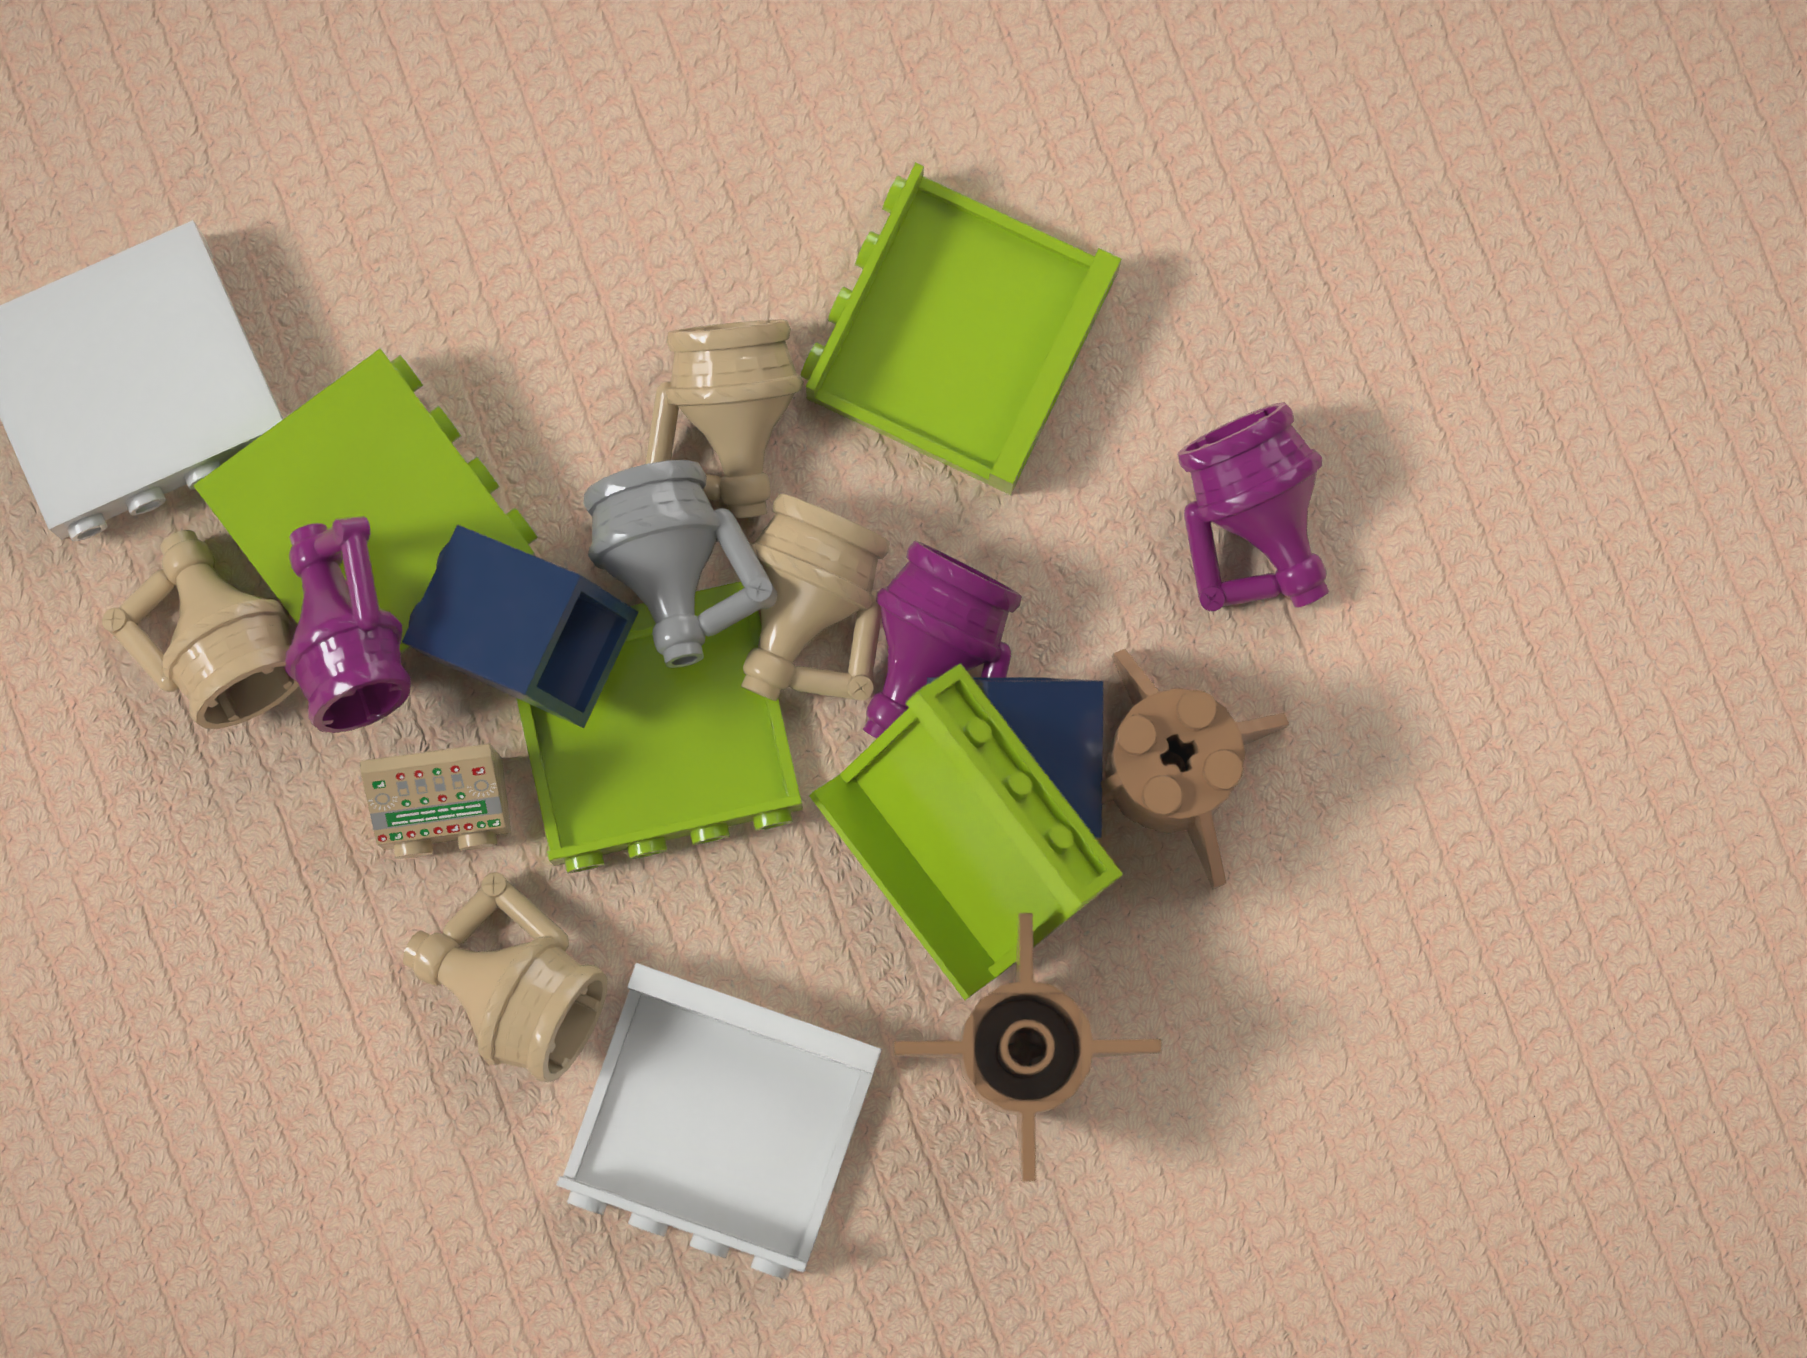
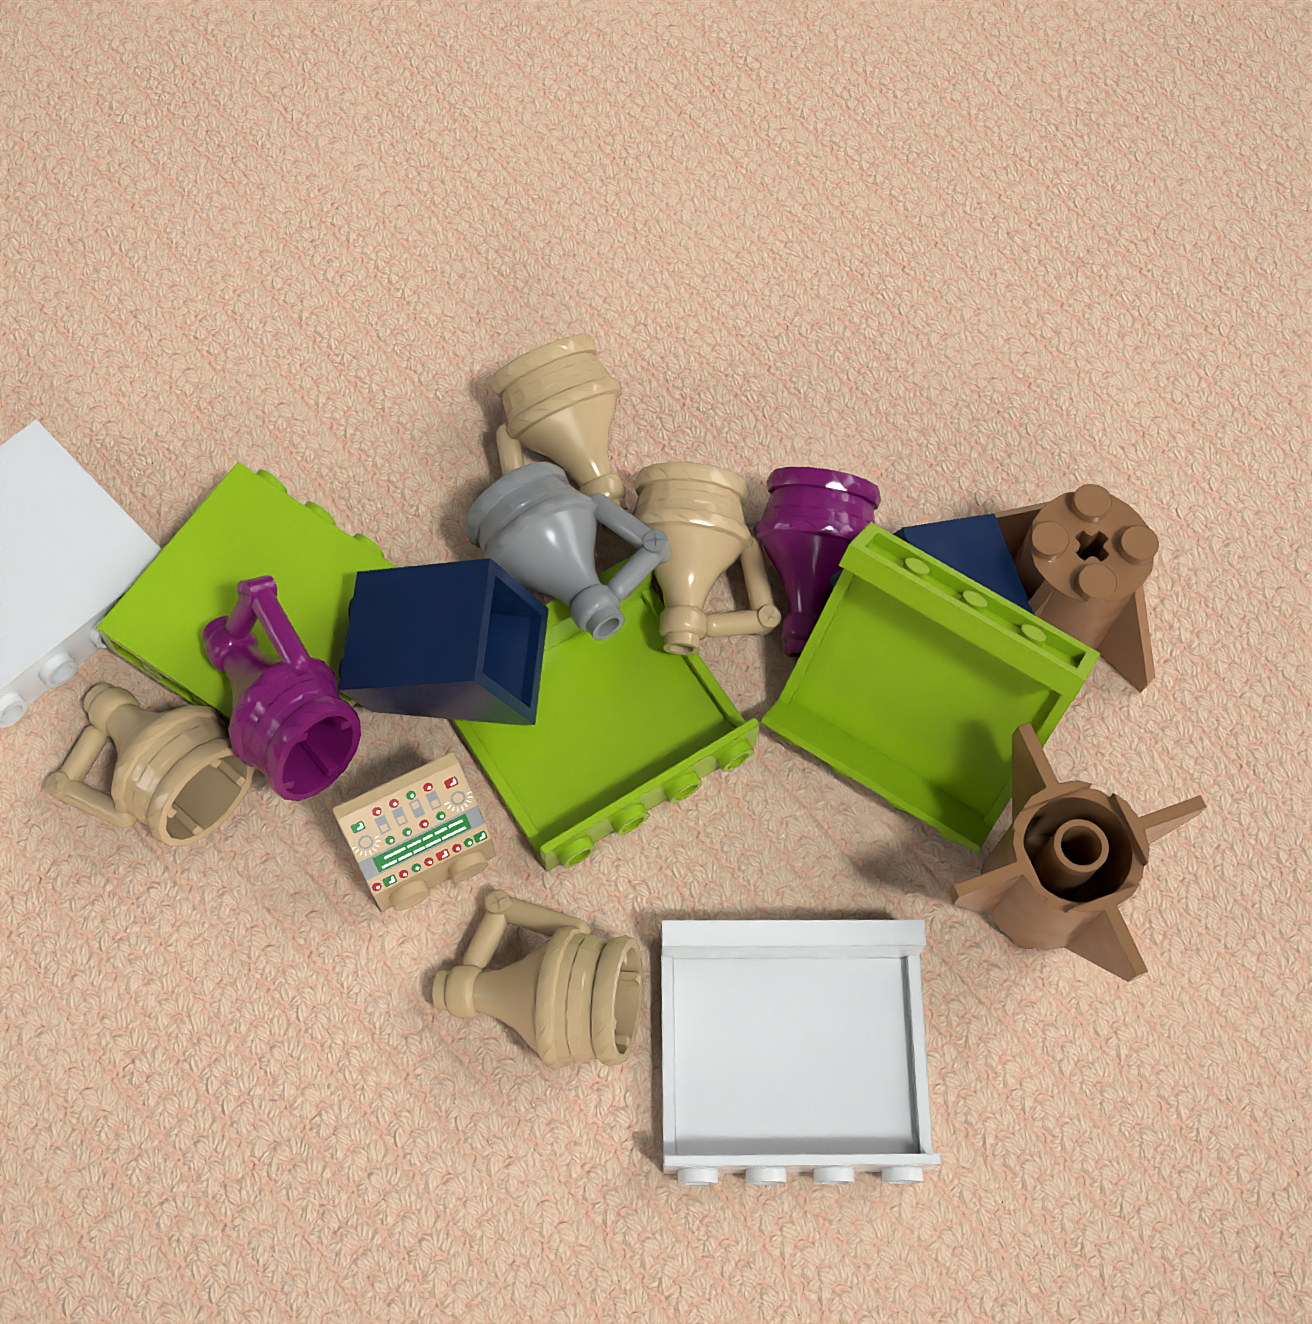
camera: 20 degrees left, 15 degrees down
(958, 330) = (733, 325): lime panel -> none
(1258, 485) = (1037, 351): magenta piece -> none

